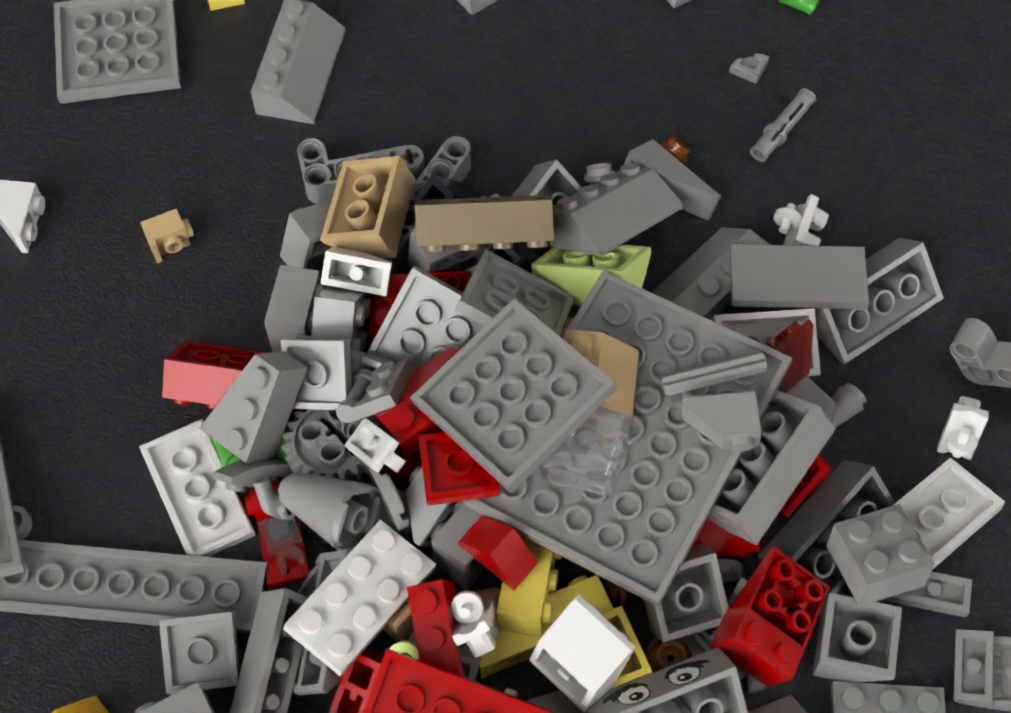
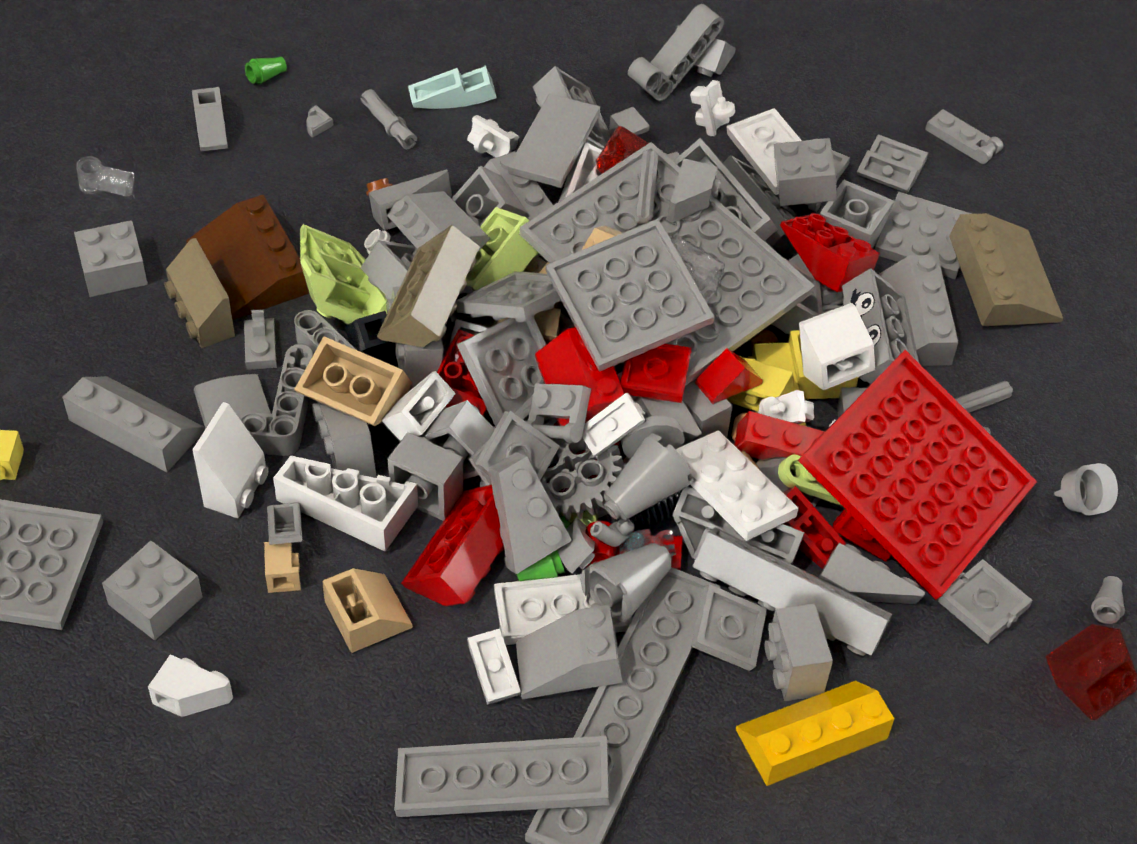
camera: 75 degrees left, 10 degrees down
(97, 446) = (493, 666): none -> white plate
(109, 148) = (152, 590): none -> light grey brick
(126, 512) = (570, 654): none -> light grey slope
(134, 315) = (364, 607): none -> tan slope
(217, 531) = (626, 579): none -> light grey cone
(222, 226) = (284, 523): none -> light grey slope
(248, 144) = (228, 464): none -> white slope
(248, 258) = (350, 502): none -> white wedge
(345, 129) = (239, 391): none -> light grey slope
(432, 125) = (260, 341): none -> light grey plate
(456, 57) = (199, 296): none -> dark tan slope
(511, 137) = (336, 277): none -> yellowish green wedge
(530, 79) = (252, 257): none -> reddish brown slope
(680, 248) = (484, 193): none -> light grey brick
(859, 168) = (453, 90): none -> light aqua slope
(888, 351) = (630, 120): none -> light grey panel

